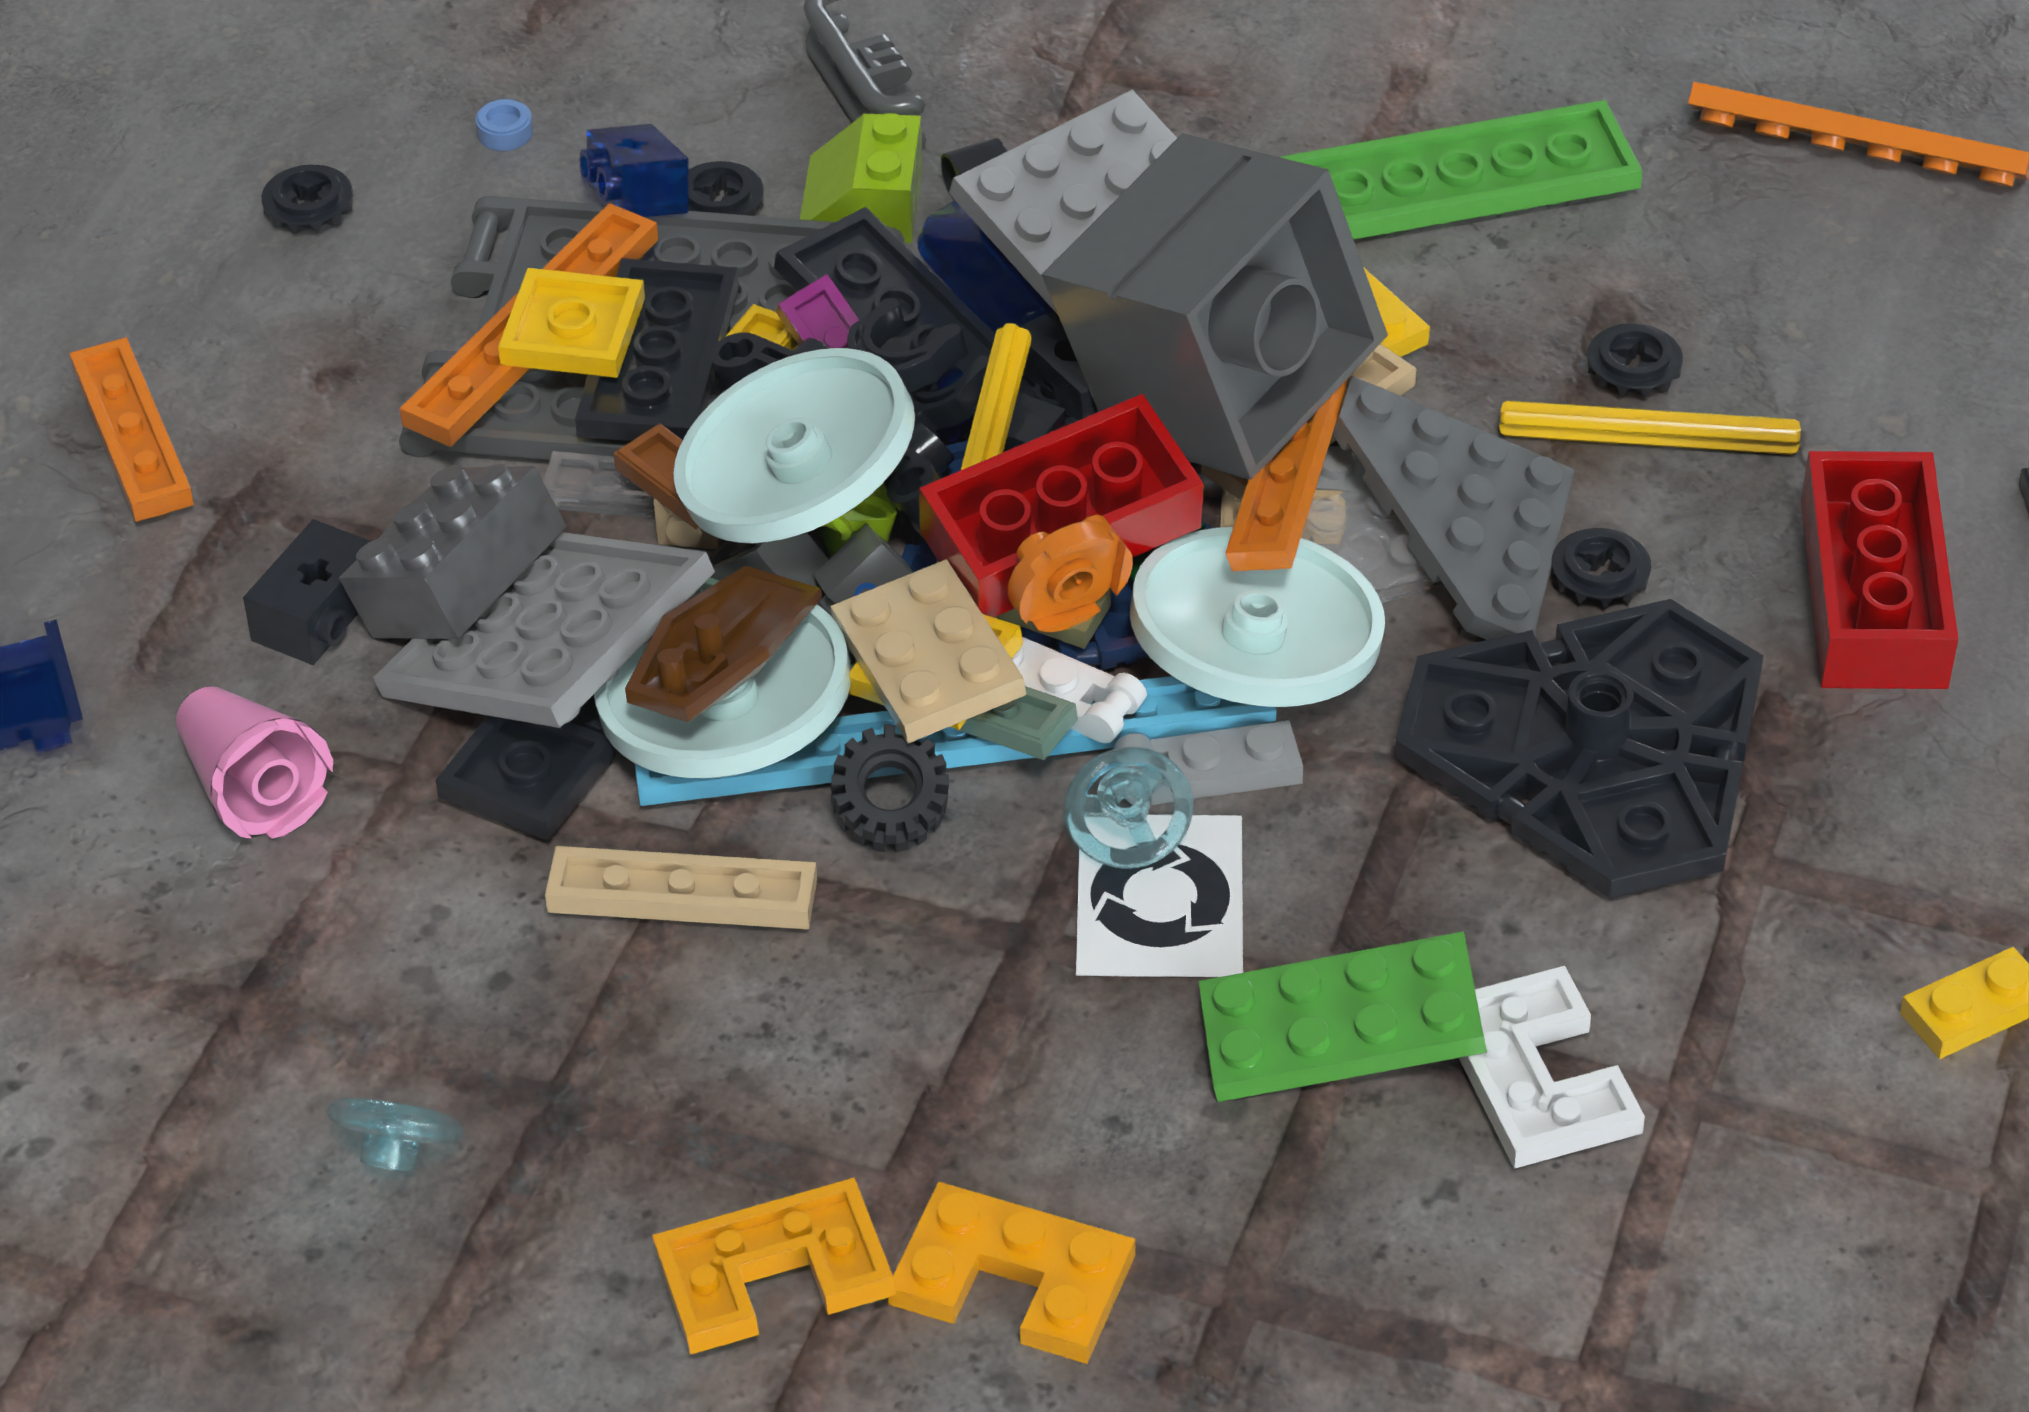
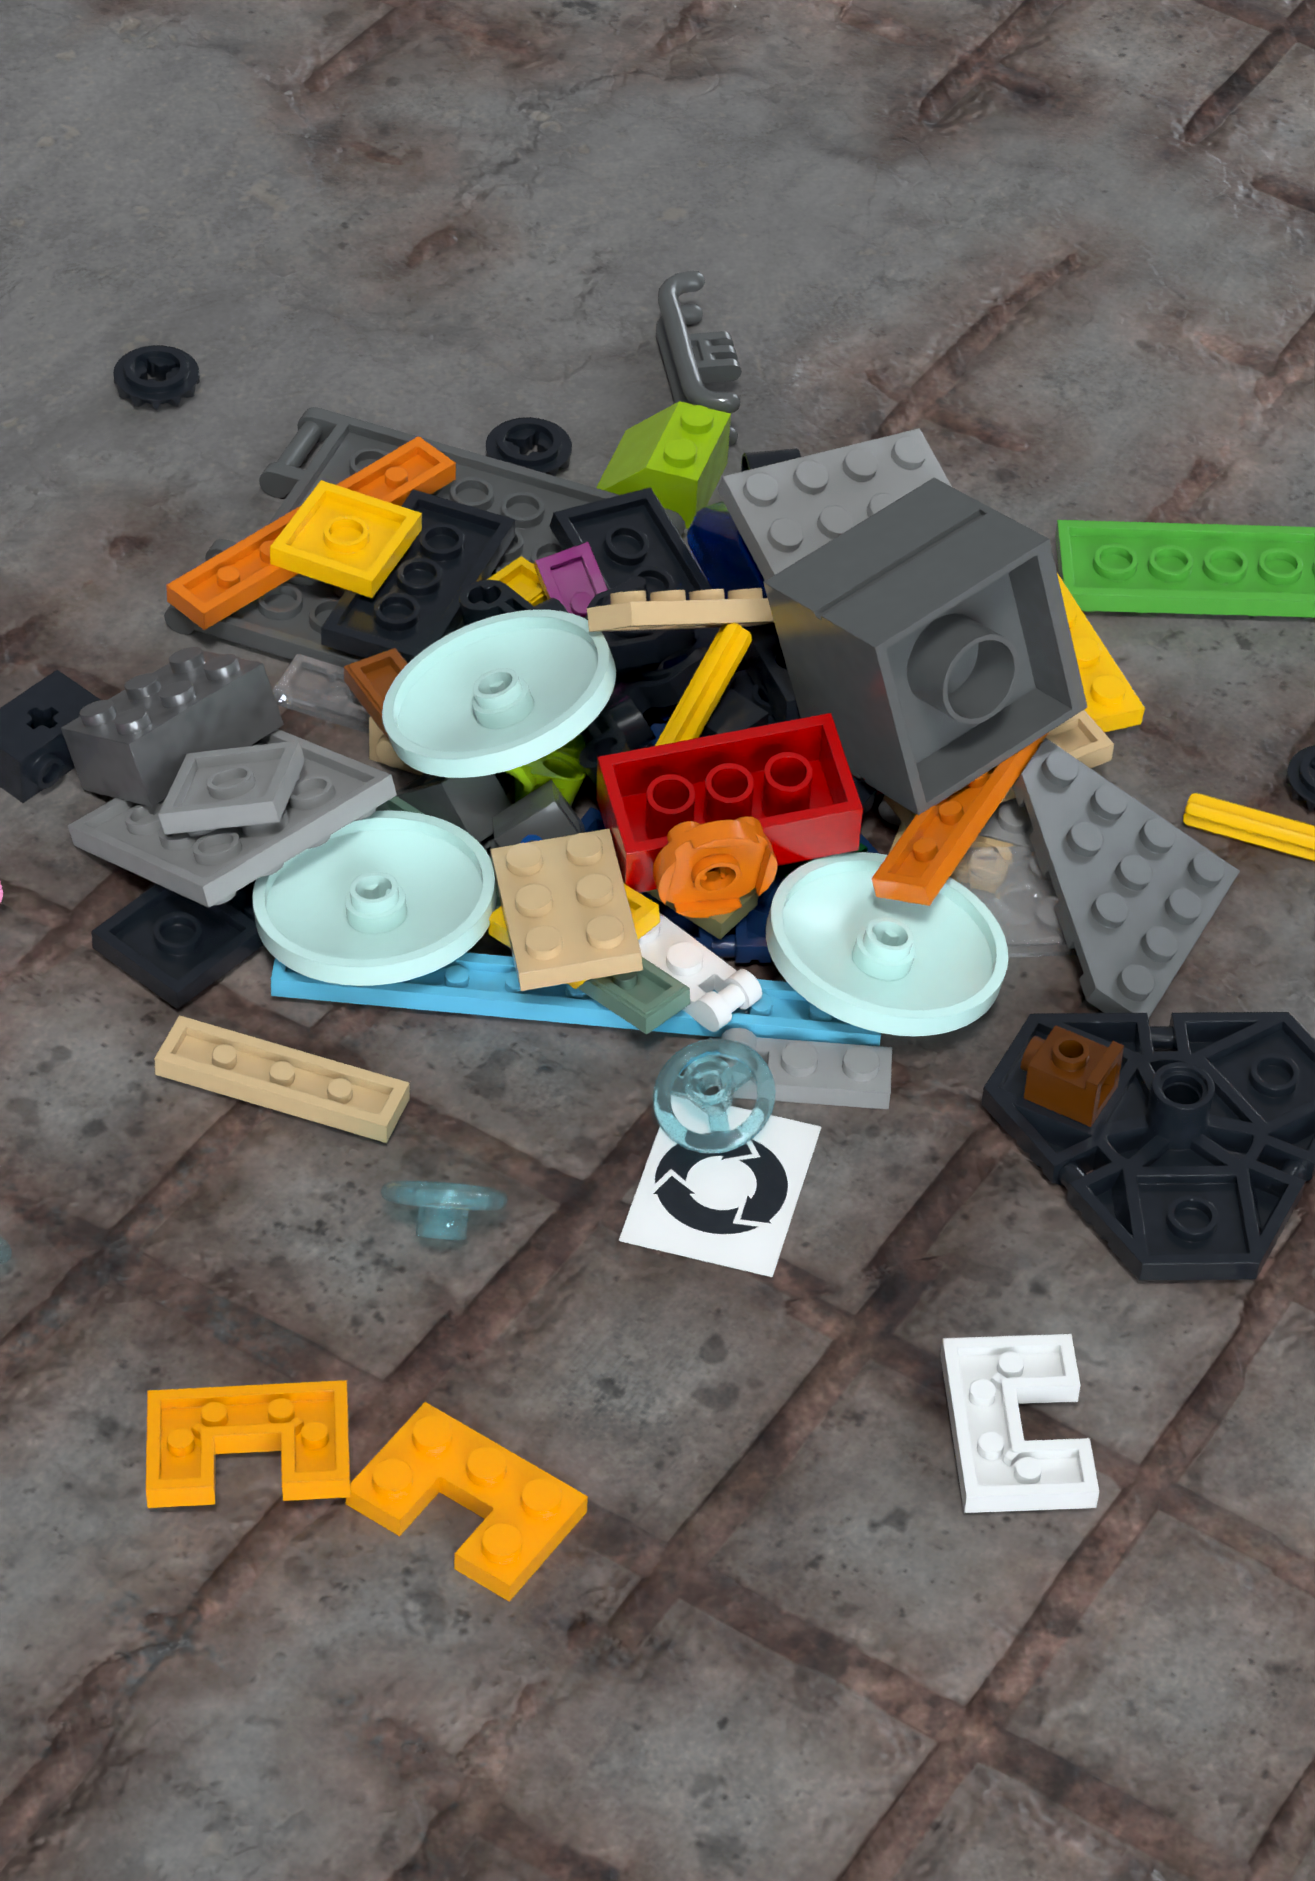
camera: 10 degrees right, 0 degrees up
(504, 125) = (356, 345): medium blue tile -> none
(544, 601) = (232, 788): none -> light grey plate
(636, 170) = (455, 411): clear blue brick -> none
(718, 642) = (378, 860): reddish brown piece -> none
(884, 825) = (490, 1064): black tyre -> none
(892, 978) = (443, 1205): none -> clear light blue piece
(958, 321) = (672, 611): none -> tan plate
(1341, 1017) = (846, 1334): bright green plate -> none
(1483, 706) = (1071, 1074): none -> reddish brown brick
(1589, 550) = (1229, 950): black gear -> none

